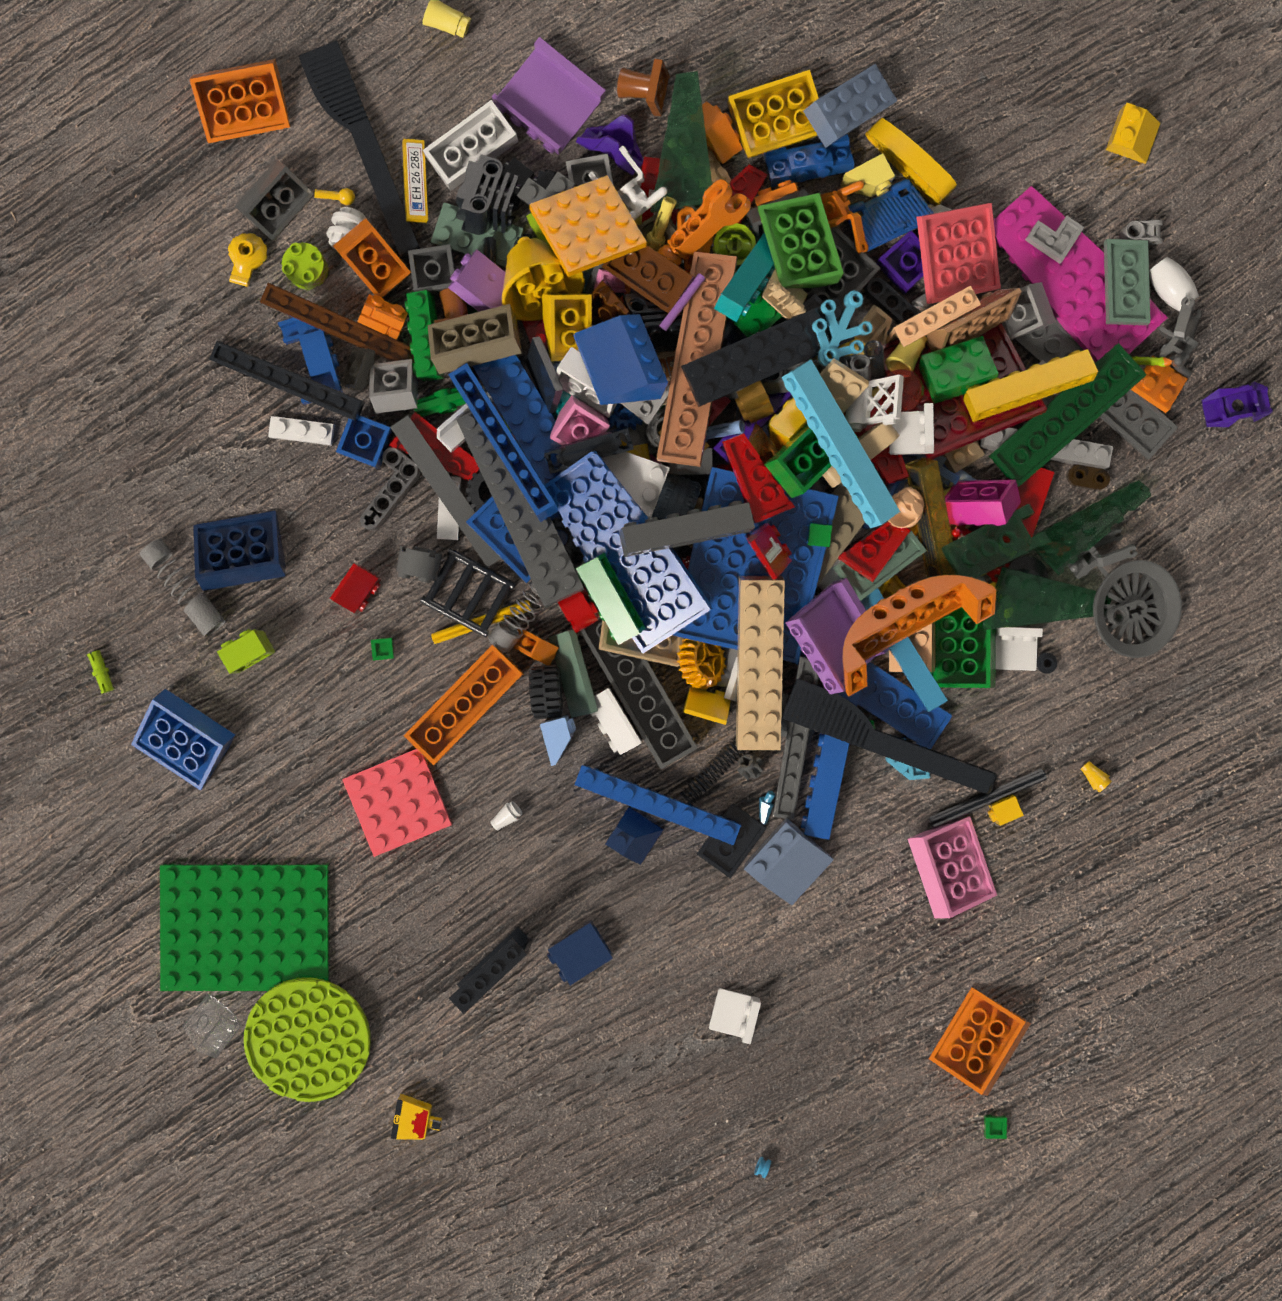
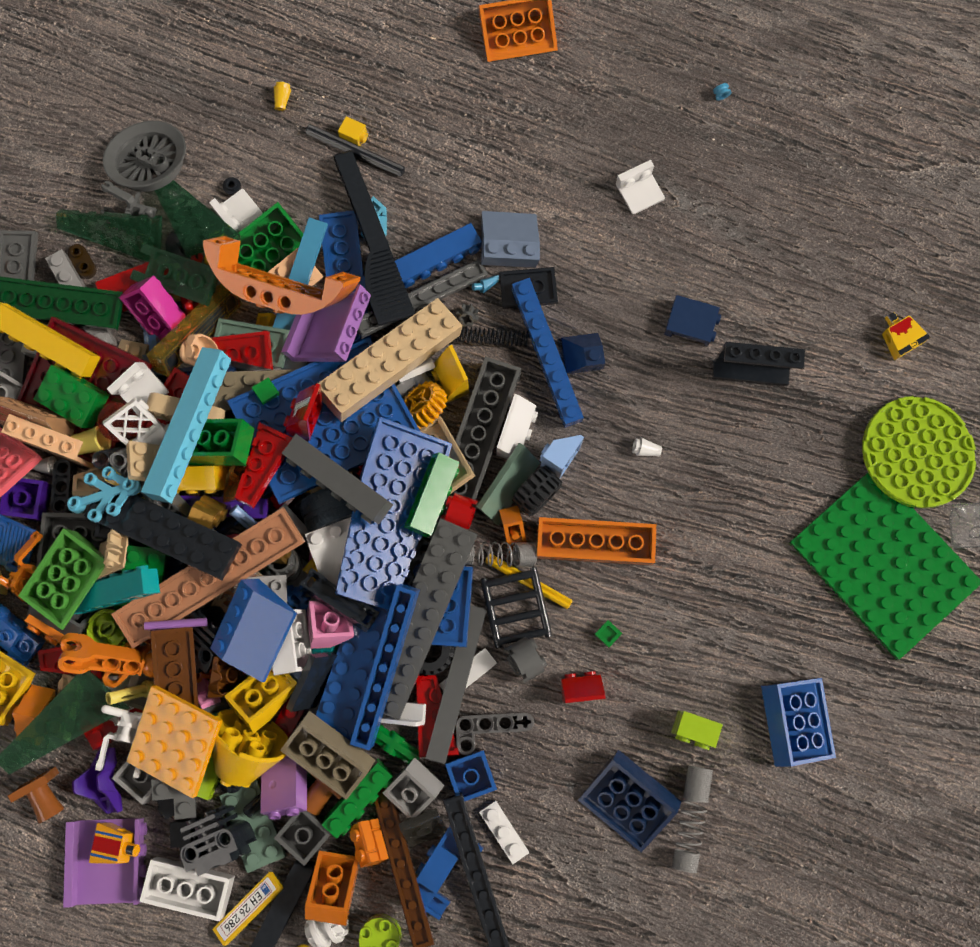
camera: 125 degrees left, 10 degrees down
(100, 671) = (805, 826): lime pin -> none
(397, 802) = (704, 532): coral plate -> none
(555, 113) = (113, 844): none -> light orange torso
(952, 868) = (421, 134): bright pink slope -> none

